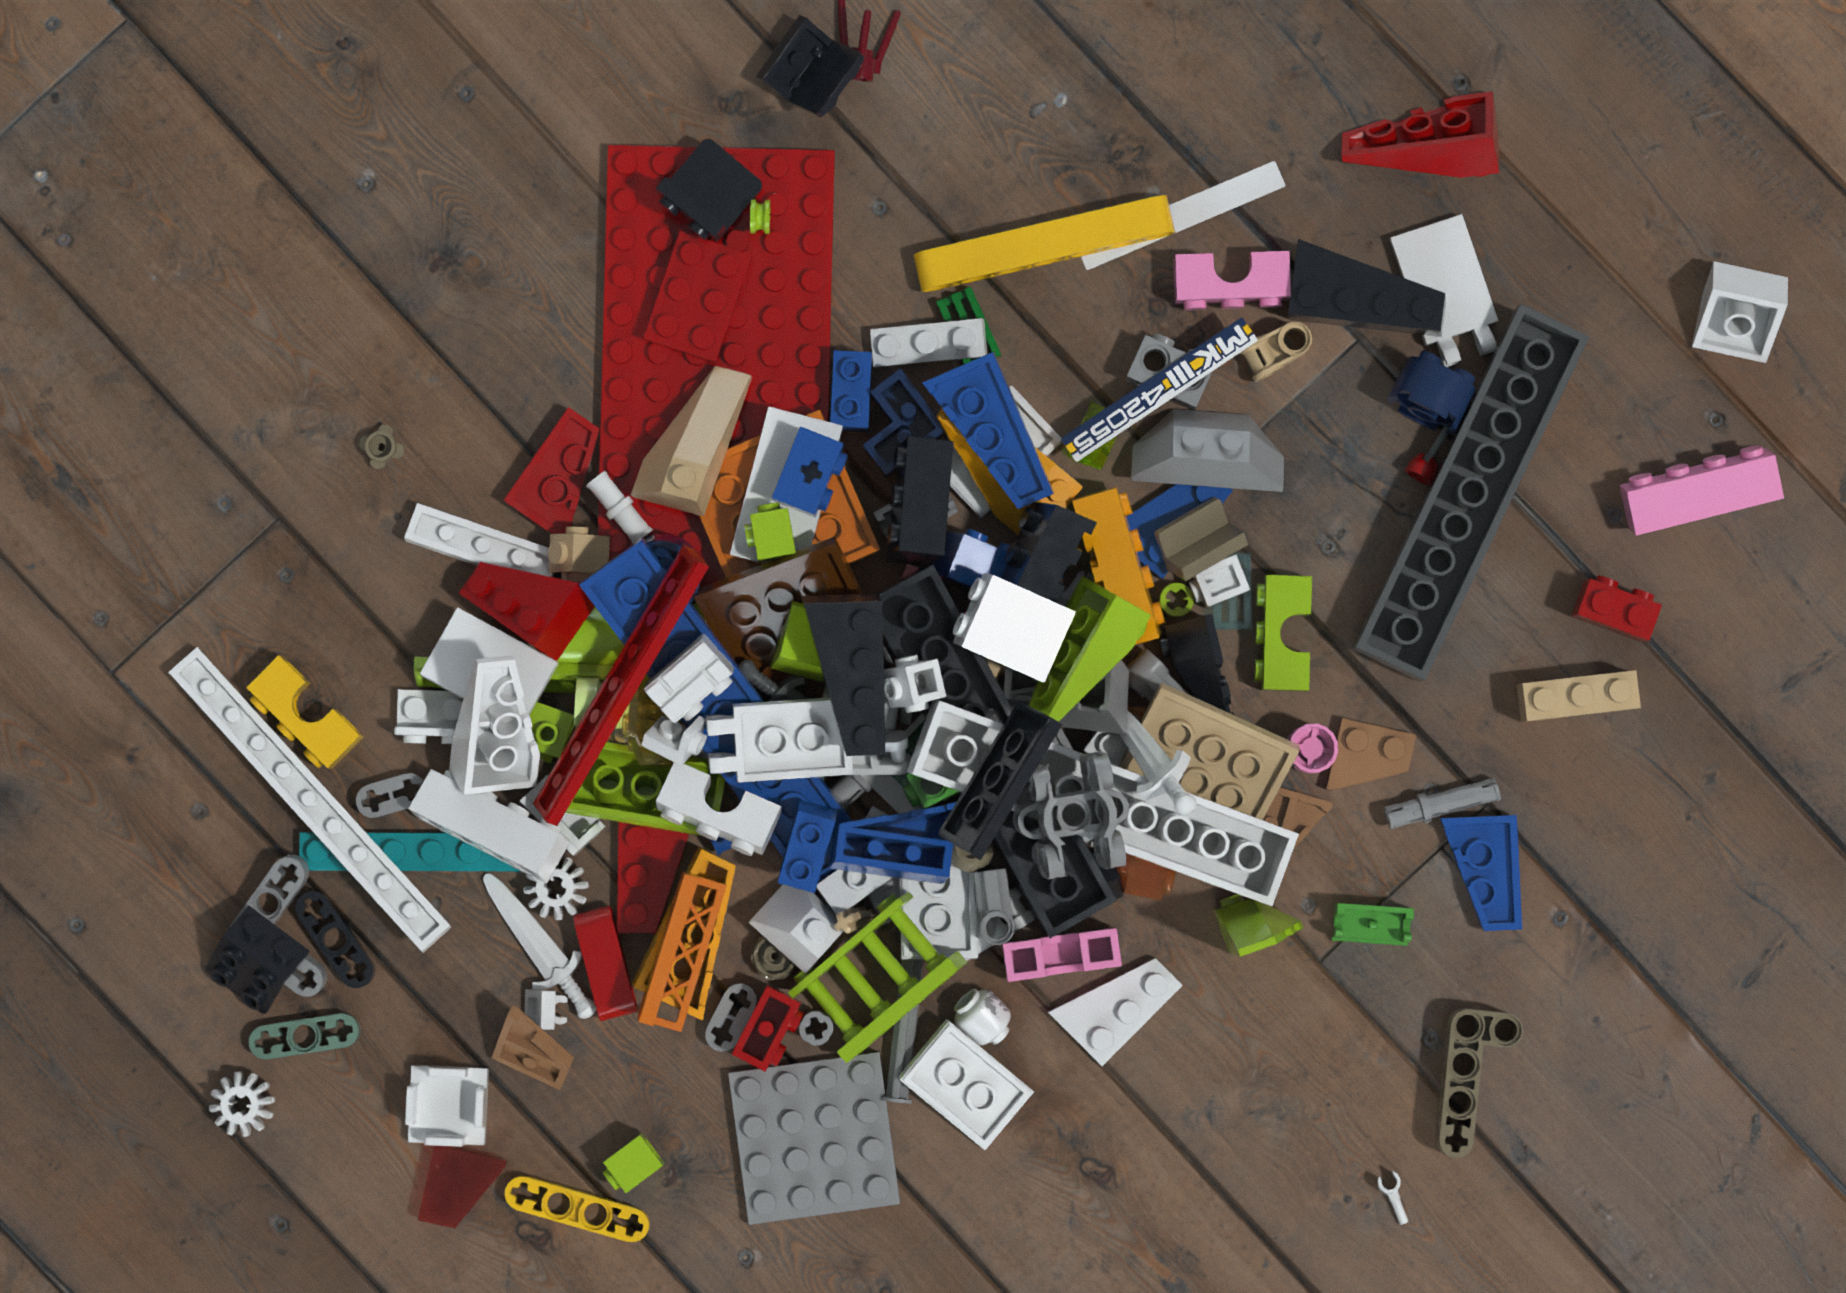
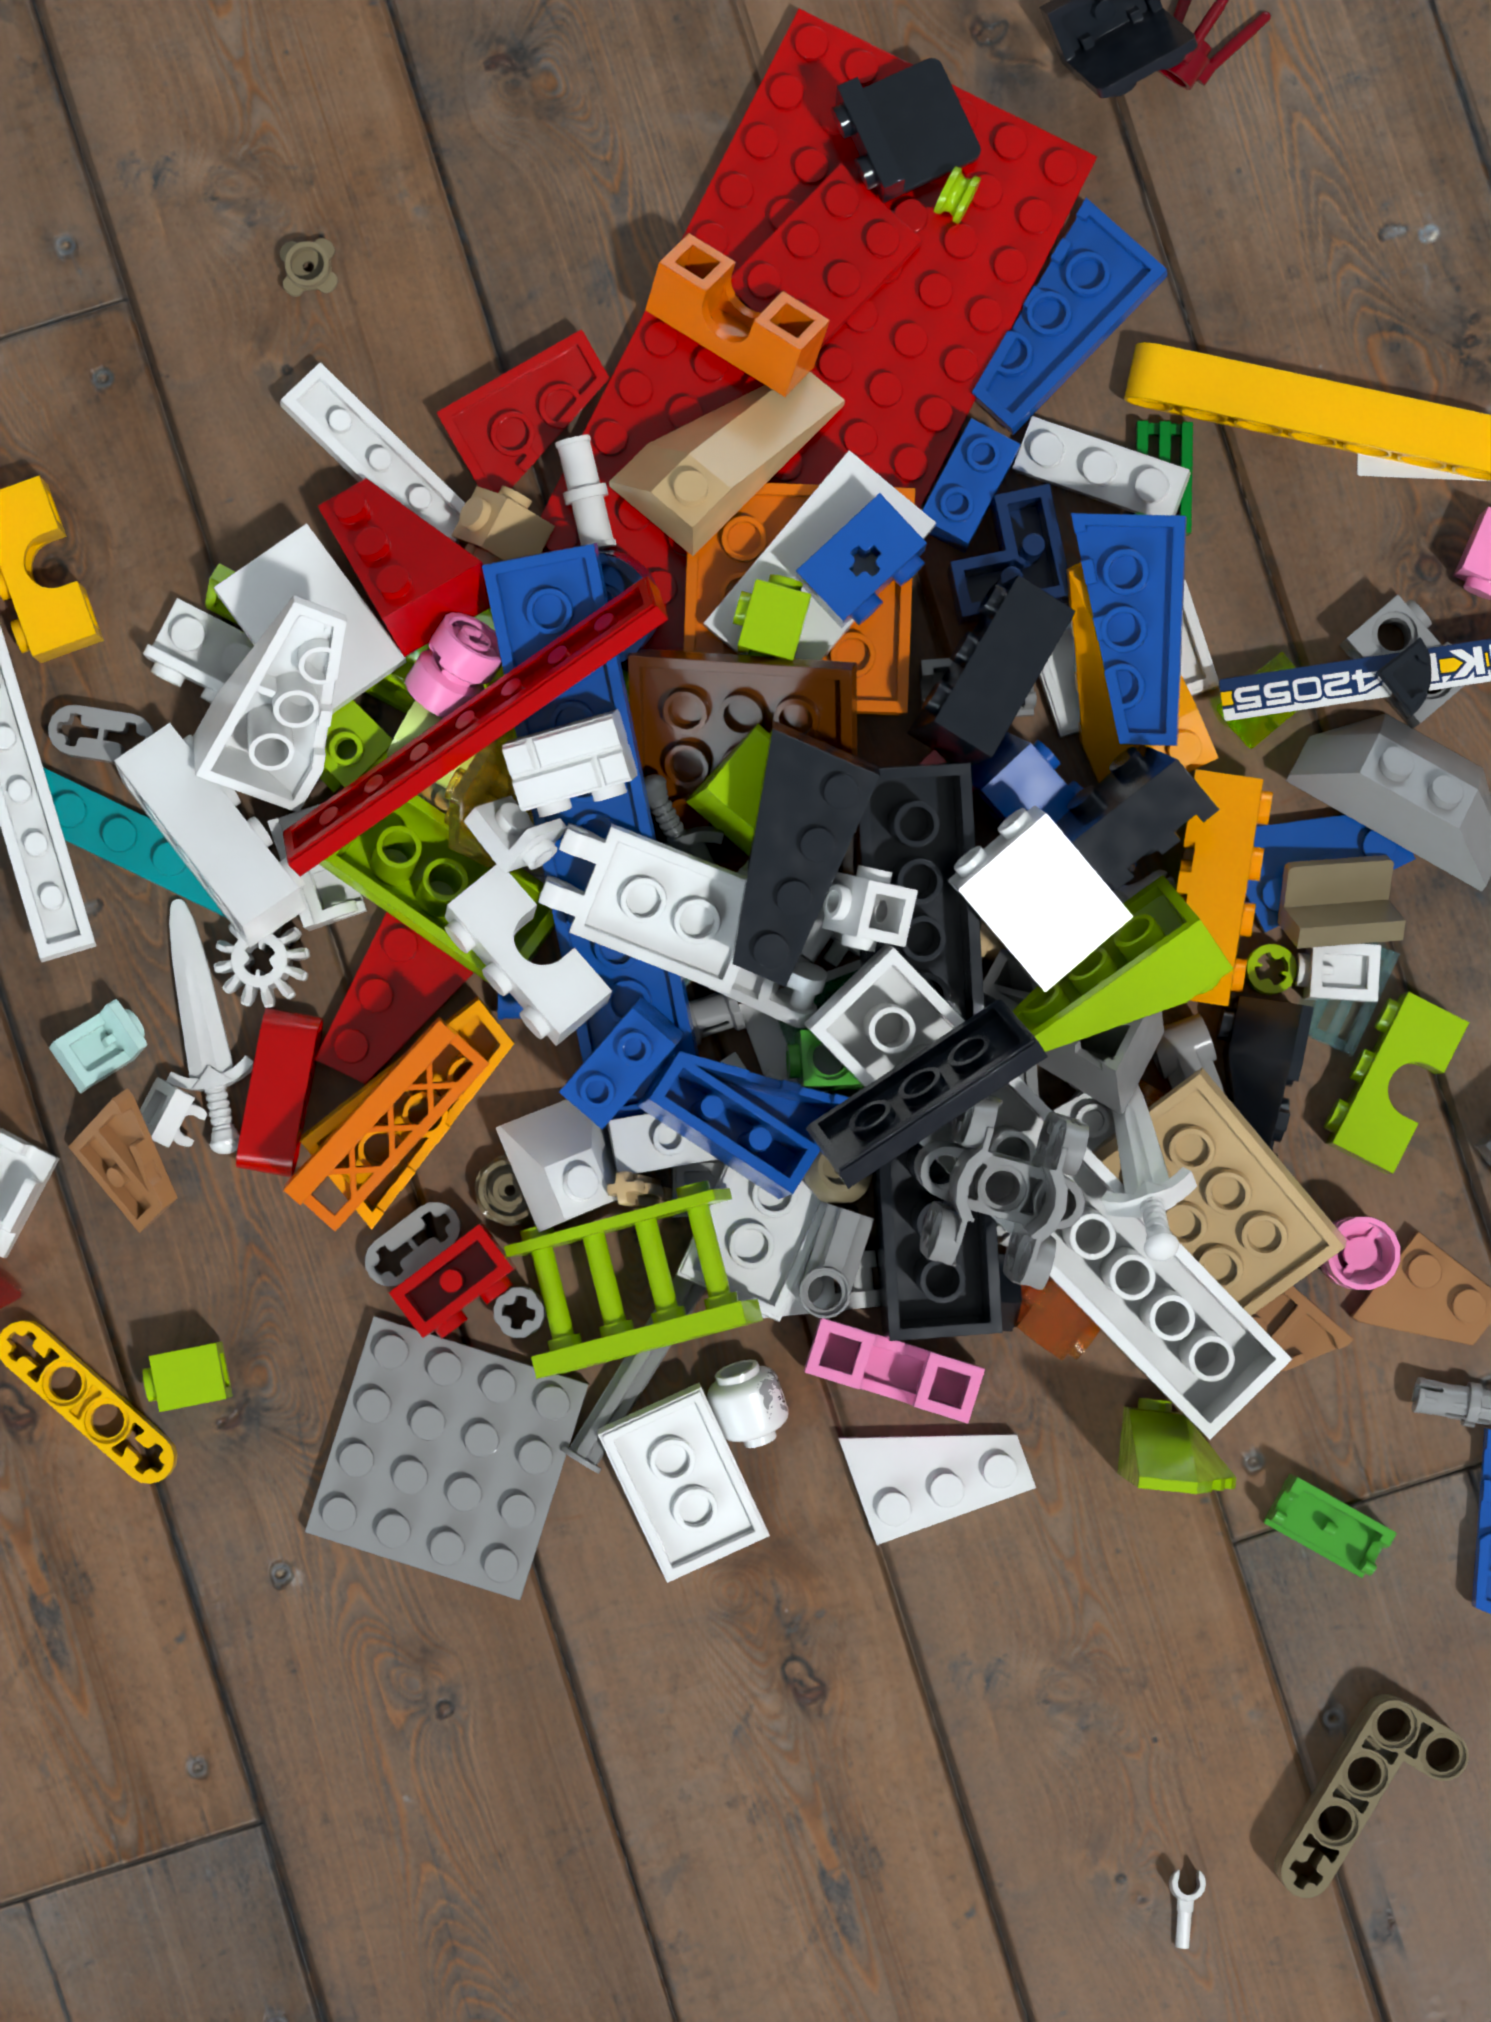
camera: 25 degrees right, 0 degrees up
(481, 986) = (100, 1045): none -> light aqua bracket
(590, 653) = (456, 666): none -> bright pink wheel
(633, 357) = (698, 299): none -> orange arch
(865, 247) = (1079, 302): none -> blue wing
(1175, 383) = (1408, 677): none -> black tile

